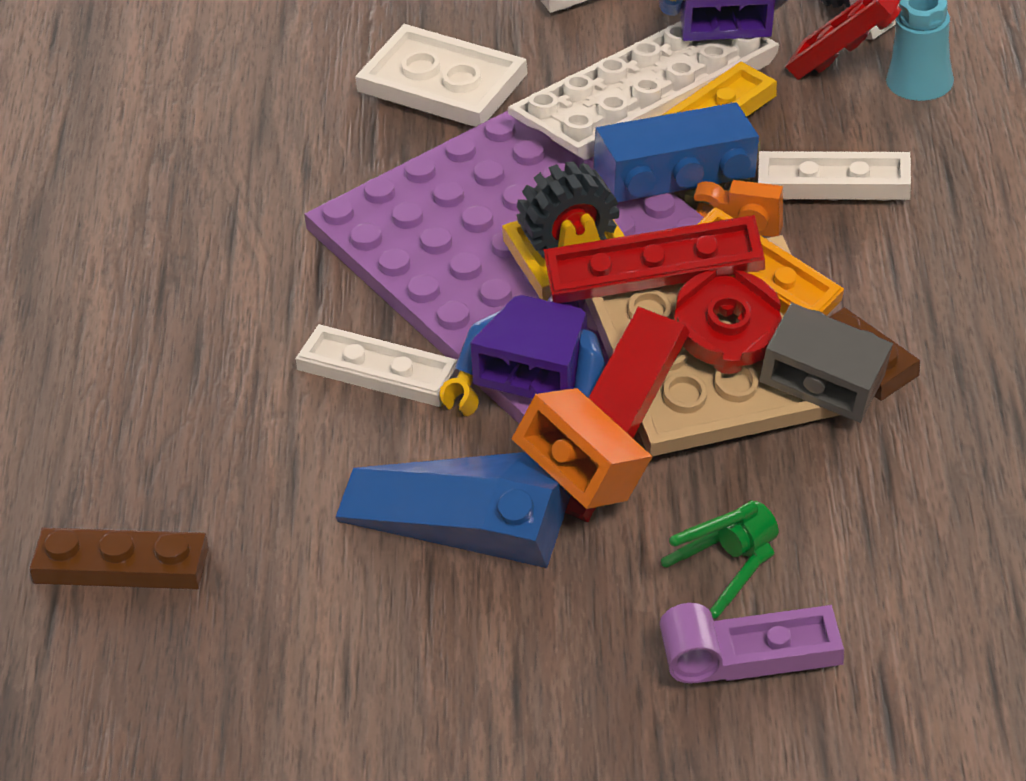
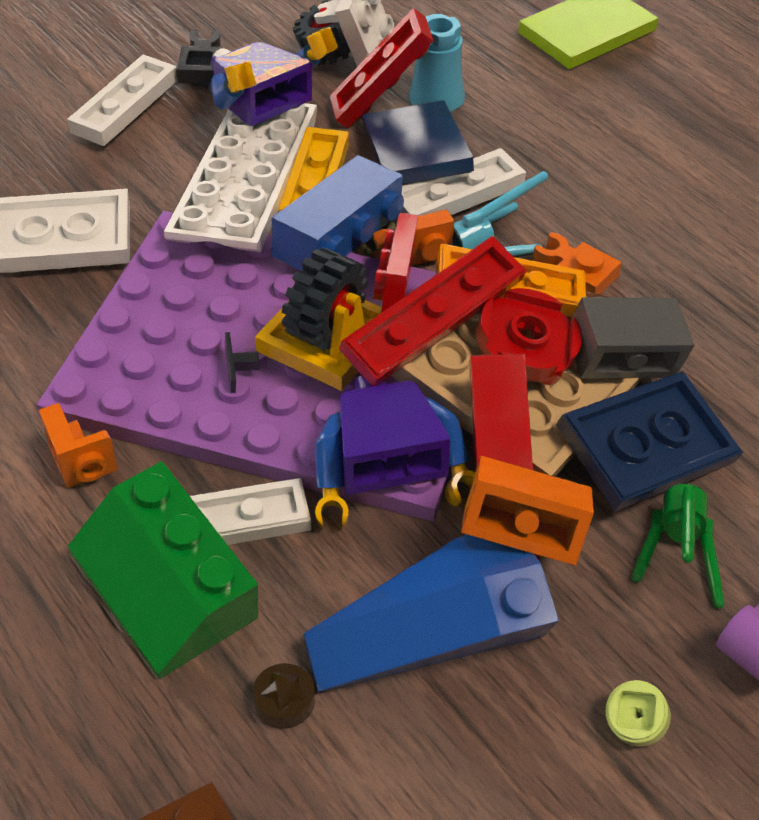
camera: 40 degrees left, 5 degrees up
(290, 375) = (164, 570): none -> green slope
(300, 259) = (76, 456): none -> orange bracket
(307, 506) = (284, 695): none -> dark brown tile
(480, 243) = (238, 362): none -> black piece
(554, 646) = (638, 713): none -> yellowish green tile
(678, 205) = (396, 261): none -> red plate
(775, 456) = (648, 440): none -> dark blue tile
(805, 220) = (477, 225): none -> medium azure plant
(832, 116) = (418, 142): none -> dark blue tile
(883, 297) = (598, 267): none -> orange plate

